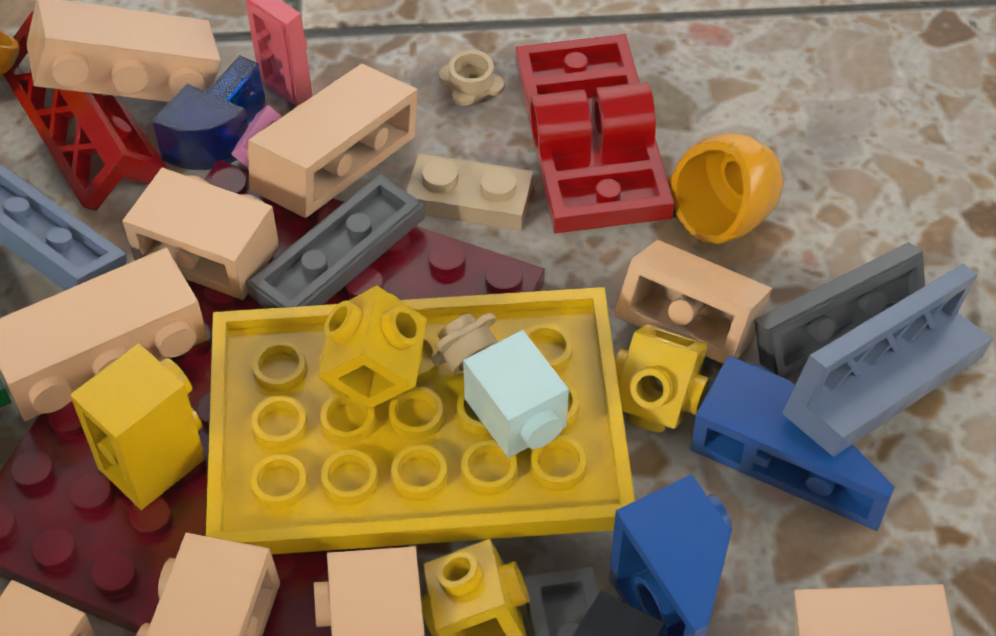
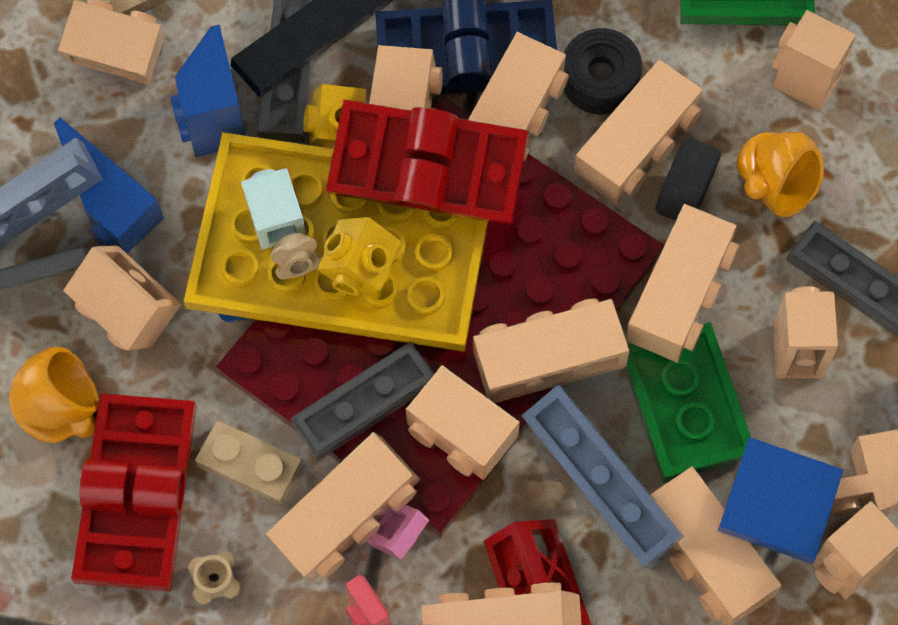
camera: 165 degrees left, 15 degrees up
(140, 424) = (524, 245): yellow brick -> none
(208, 124) = (443, 562): clear blue brick -> none
(301, 495) = (427, 161): none -> red plate
(675, 363) = (165, 243): yellow brick -> none

